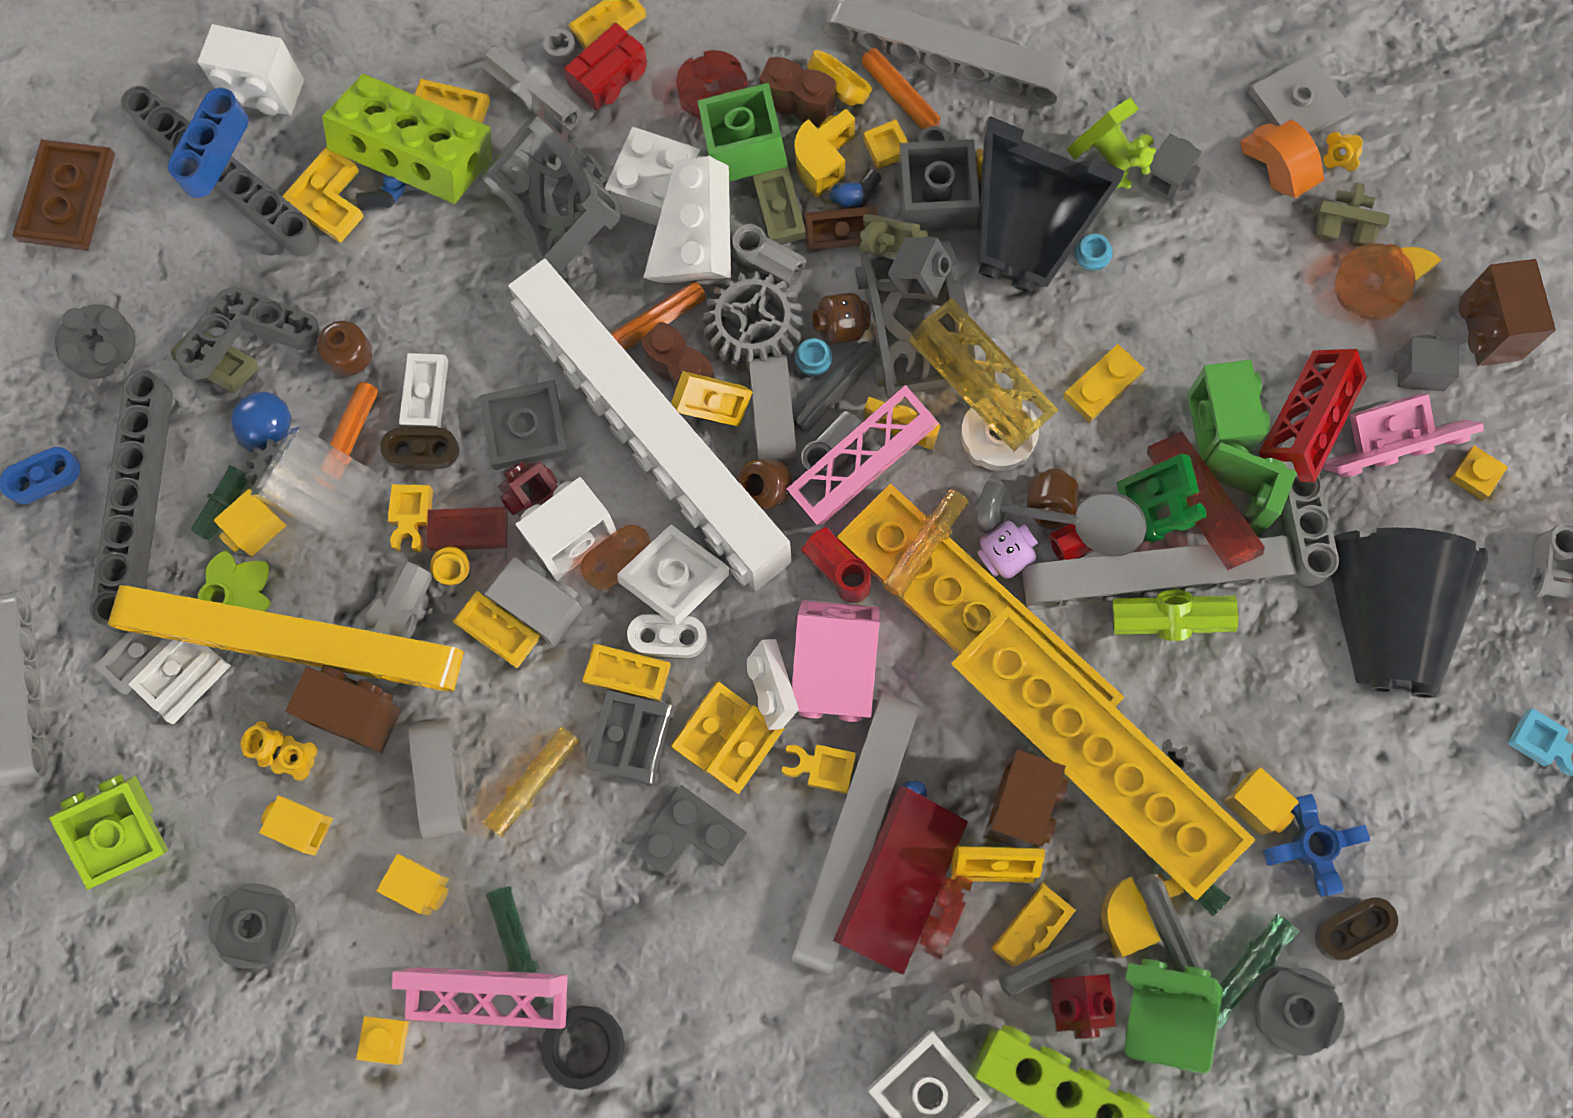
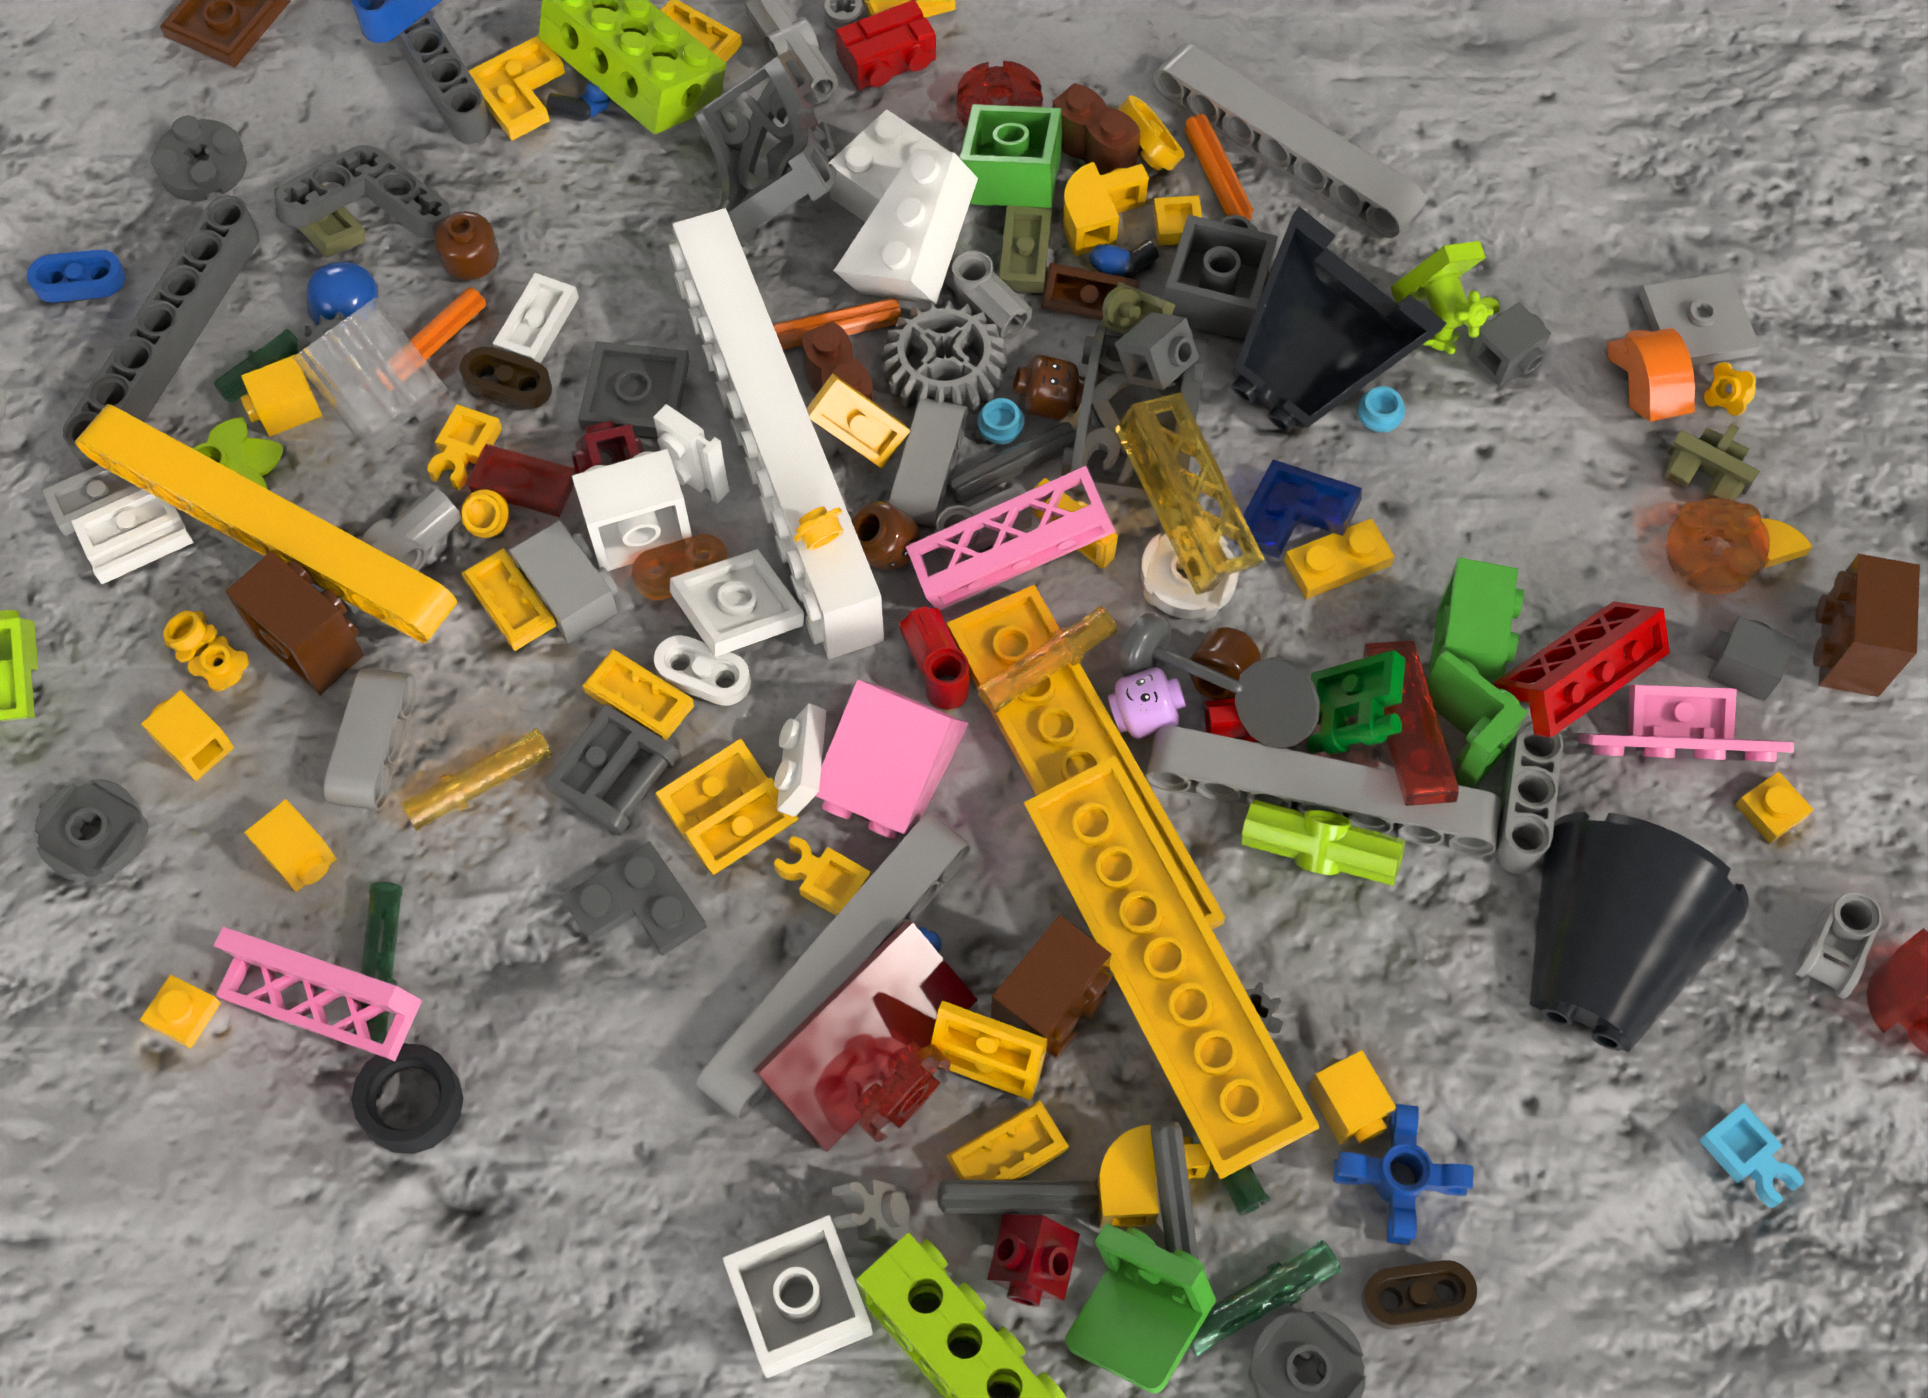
camera: 15 degrees right, 10 degrees down
(593, 467) = (692, 456): none -> white plate
(726, 506) = (819, 527): none -> yellow plate
(1057, 344) = (1296, 495): none -> clear blue plate

